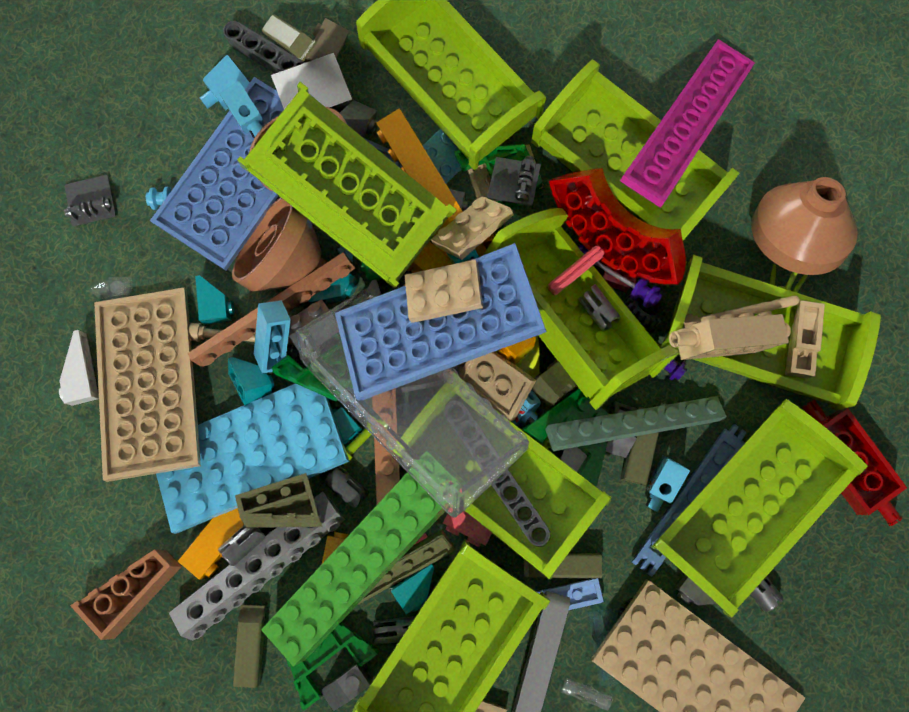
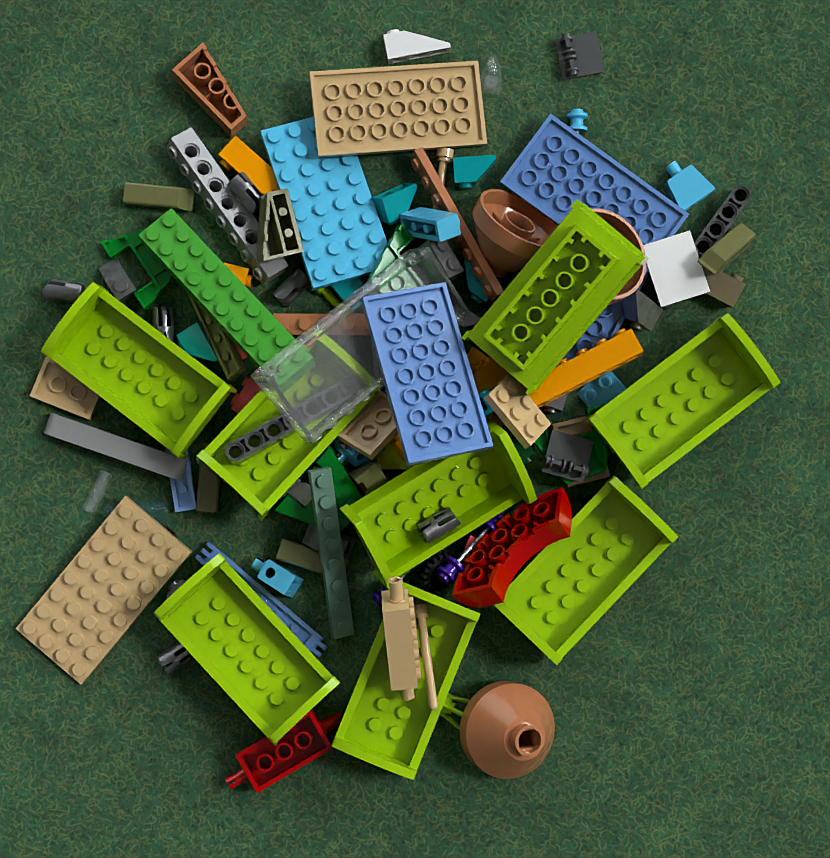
camera: 90 degrees right, 5 degrees up
(241, 106) = (656, 199): medium azure torso -> none
(443, 291) = (453, 379): tan plate -> none
(575, 270) = (475, 506): coral axle -> none
(687, 124) = (615, 626): dark pink plate -> none
(805, 340) = (397, 713): tan slope -> none

